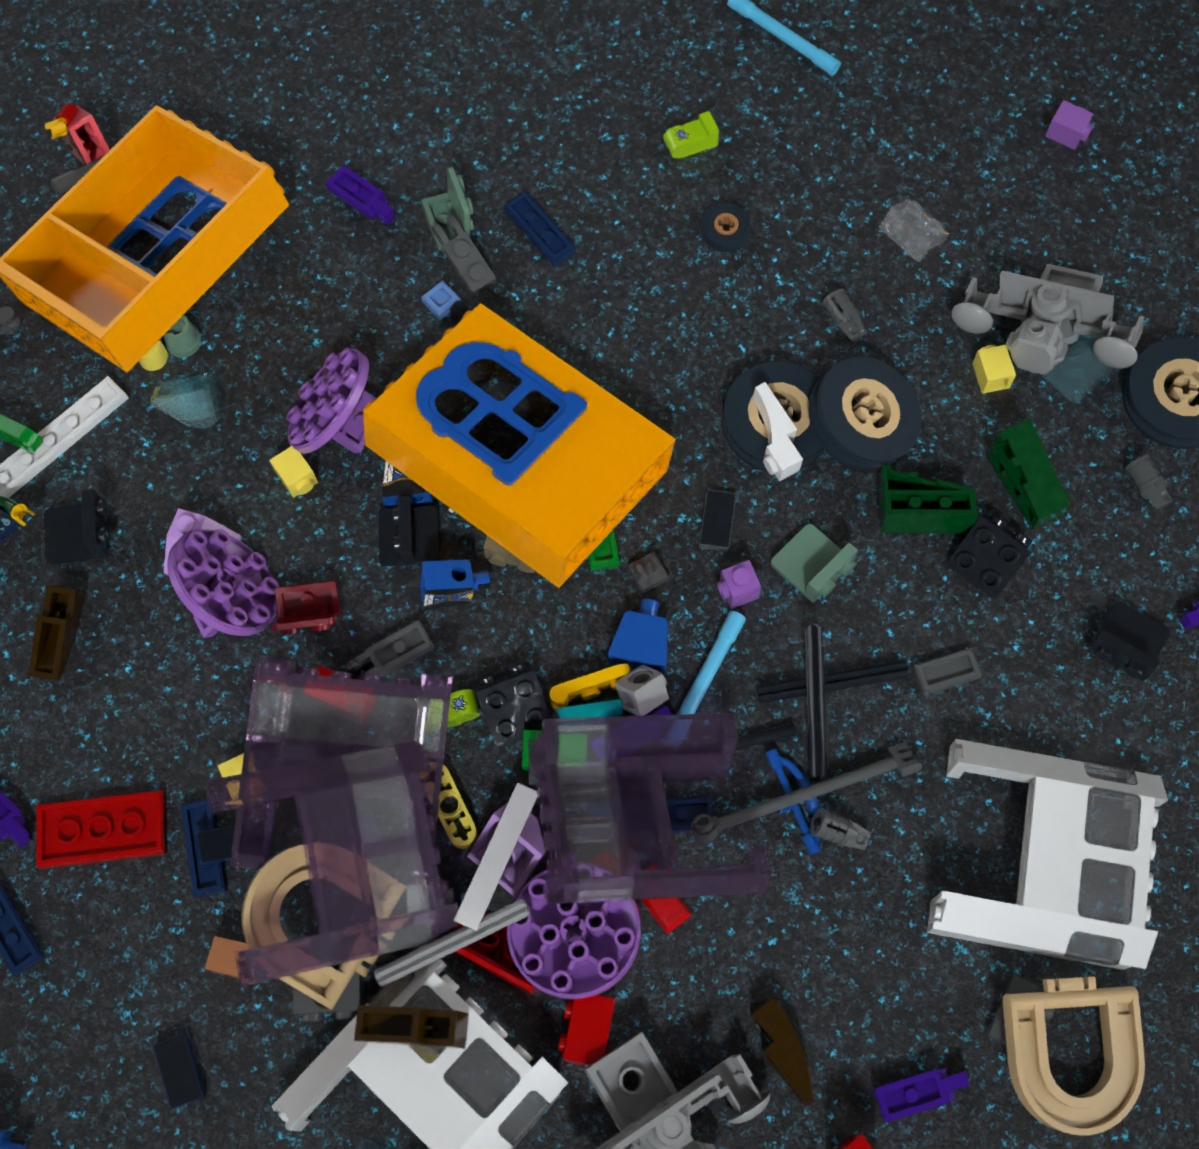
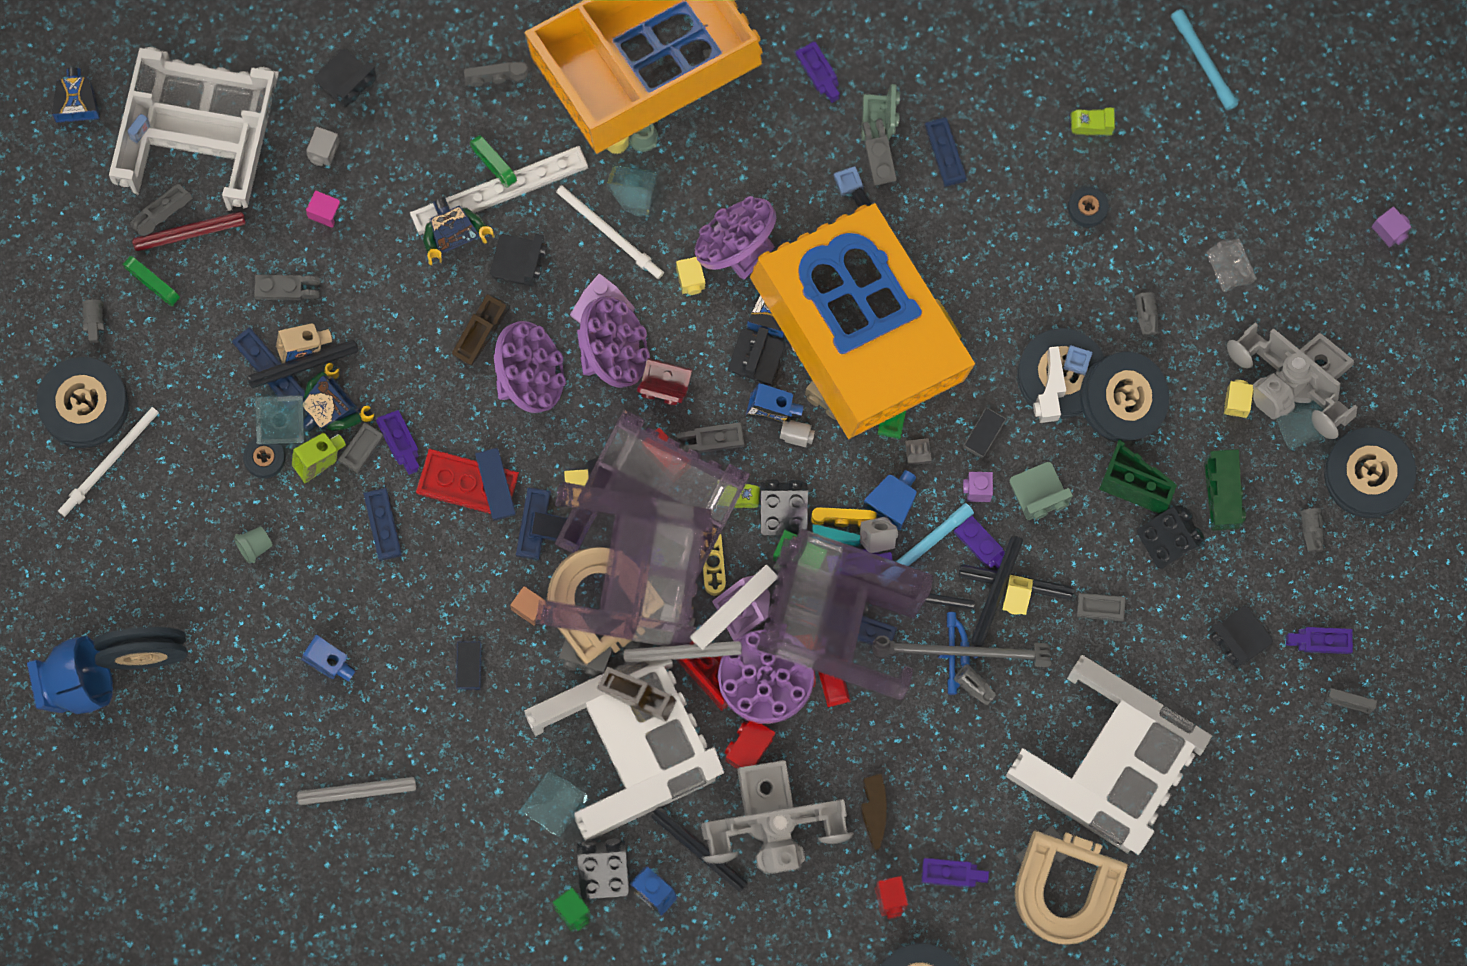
camera: 15 degrees right, 5 degrees up
(126, 653) = (527, 366): none -> medium lavender bracket
(135, 817) = (495, 484): none -> dark blue tile
(229, 475) = (642, 260): none -> white bar
(493, 606) = (797, 433): none -> light grey brick
(769, 652) = (980, 542): none -> dark purple hinge
(792, 392) = (1077, 360): none -> medium blue tile
(843, 696) = (1017, 595): none -> light yellow brick

